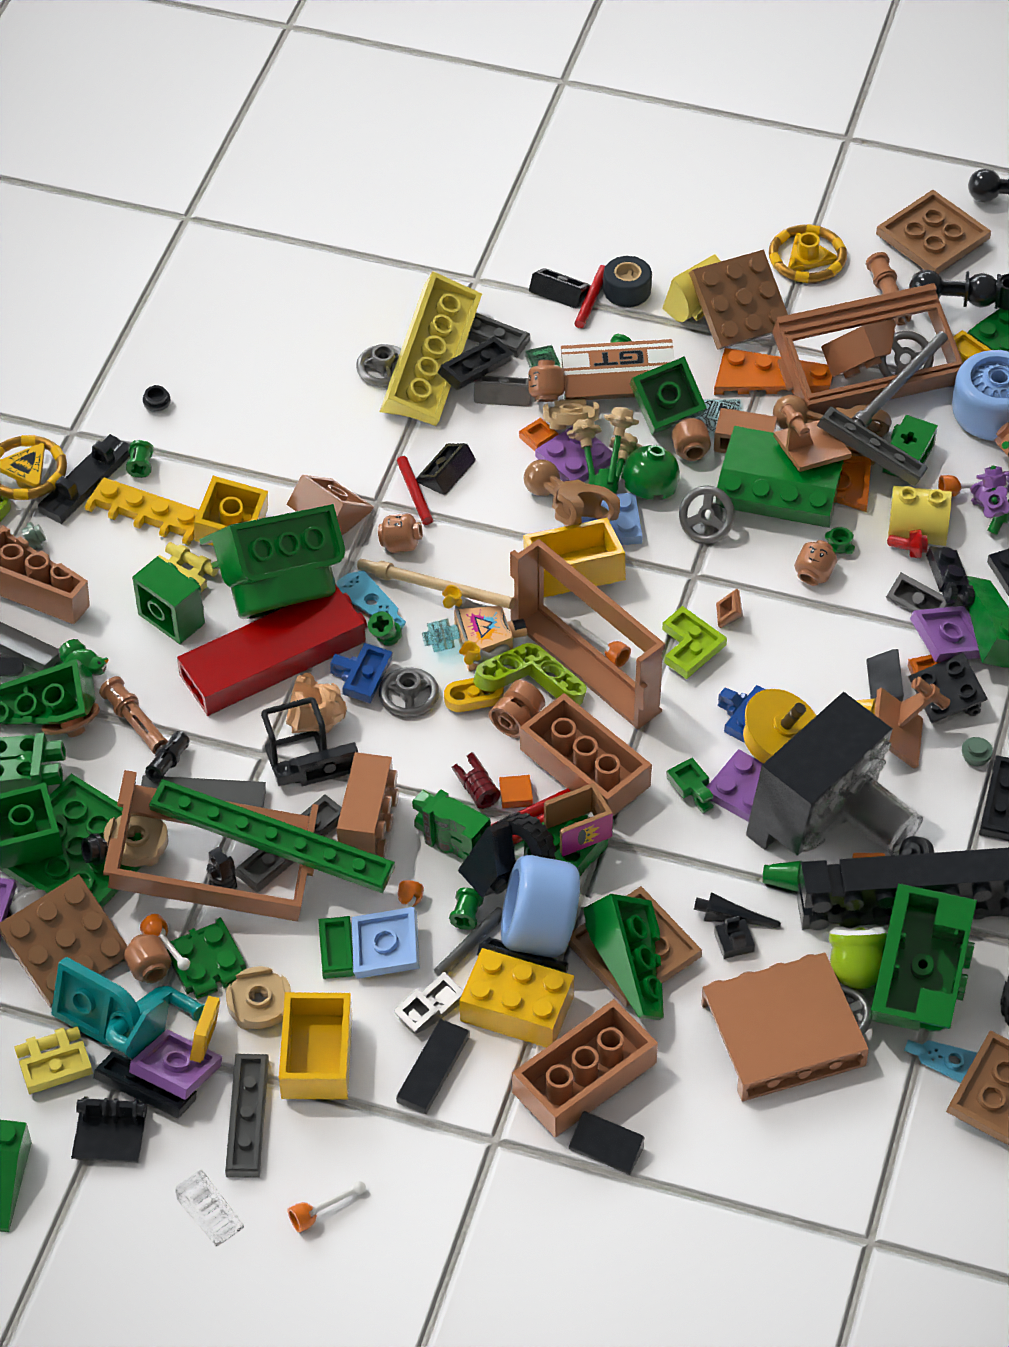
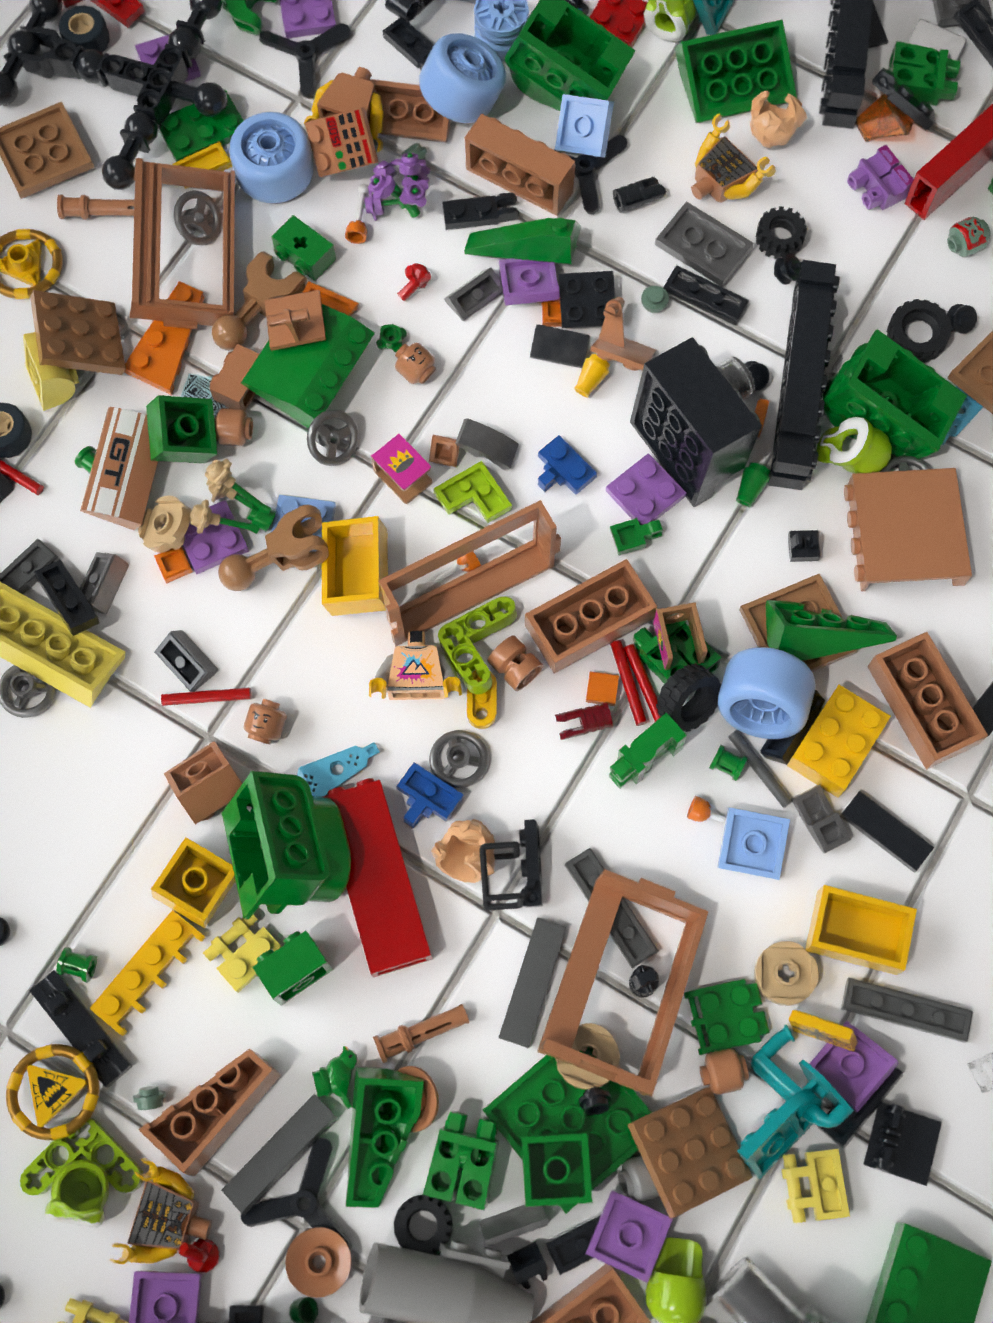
camera: 75 degrees left, 20 degrees up
(156, 925) = (691, 1057): hinge -> none
(167, 756) = (485, 1007): black pin -> none
(272, 836) = (629, 924): green tile -> none
(336, 947) = (739, 890): green tile -> none
(368, 803) = (609, 825): nougat brick -> none
(384, 628) = (380, 754): green bush -> none
(387, 571) = (305, 746): tan bar -> none
(440, 635) = (406, 712): clear light blue gear -> none
(490, 860) = (703, 726): black slope -> none
(541, 353) = (75, 536): clear green tile -> none
(546, 381) = (118, 536): nougat head -> none
(651, 472) = (264, 472): green cylinder -> none
(695, 576) = (402, 469): none -> piece
(719, 909) = (773, 549): black piece -> none
(747, 637) = (487, 442): none -> flat silver slope
(772, 720) = (608, 442): yellow piece -> none
(859, 348) = (181, 248): nougat slope -> none
(864, 416) = (269, 270): flat silver bar -> none
(872, 446) = (310, 272): dark grey tile -> none
(921, 510) = (382, 262): light yellow brick -> none
(950, 575) = (465, 259): black hinge -> none

